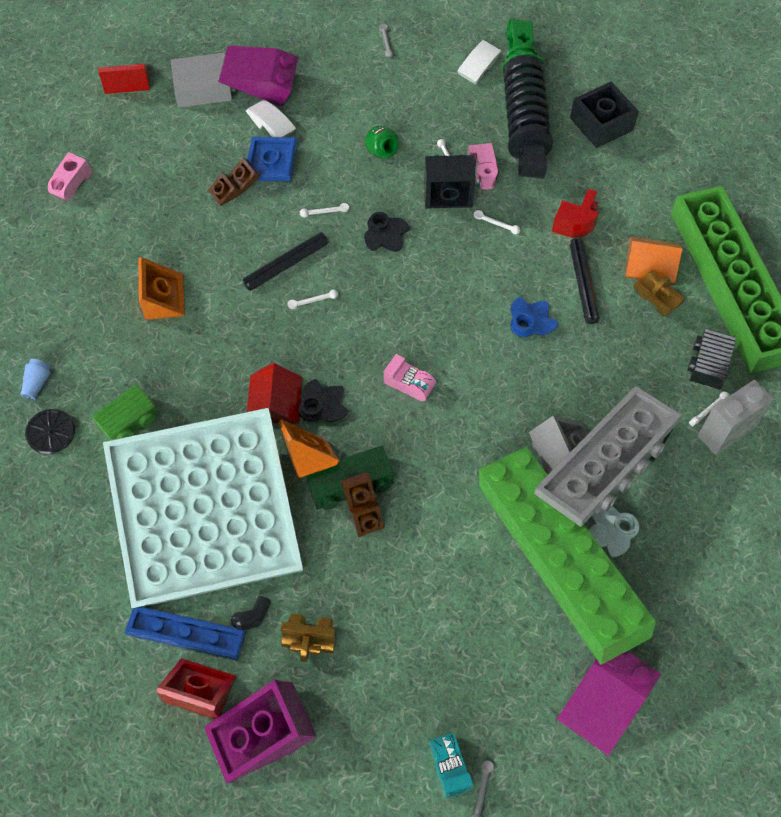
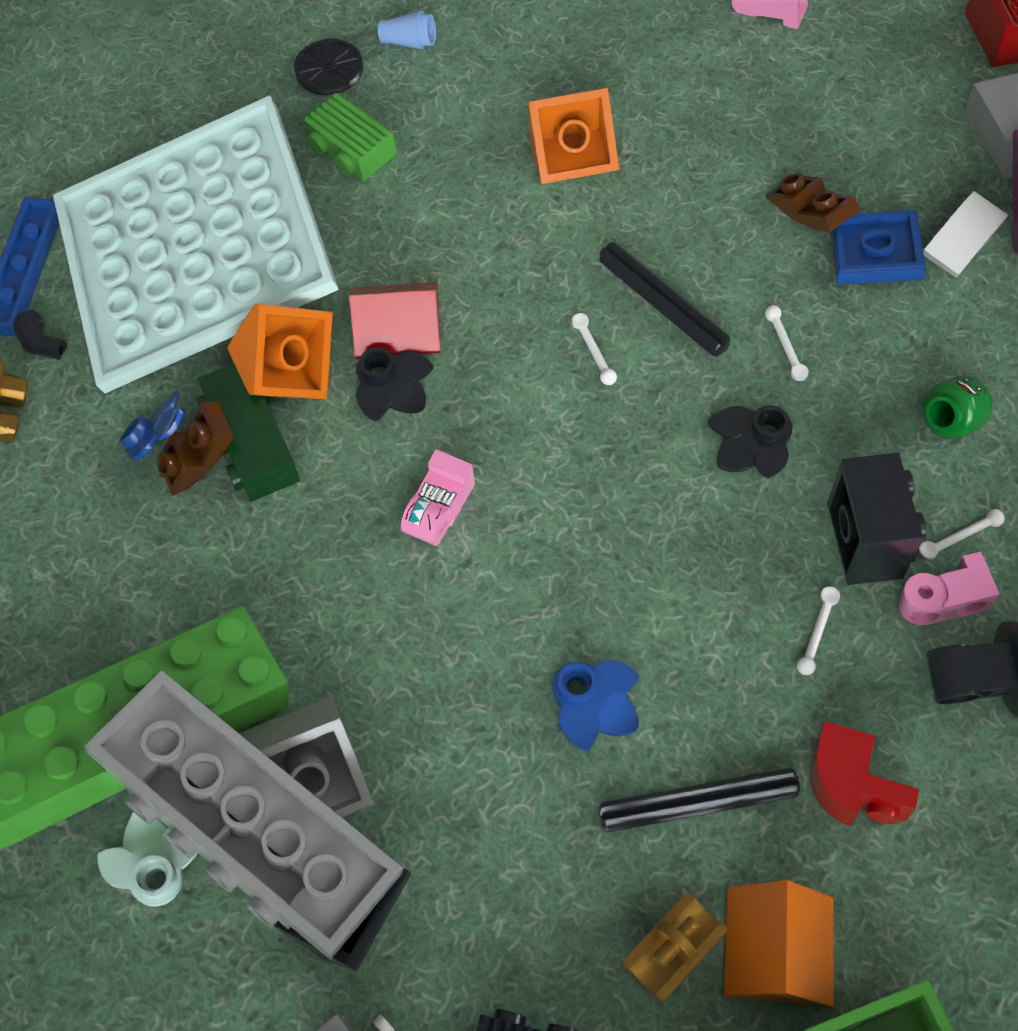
camera: 90 degrees right, 0 degrees up
(347, 526) = (144, 434): none -> blue plate

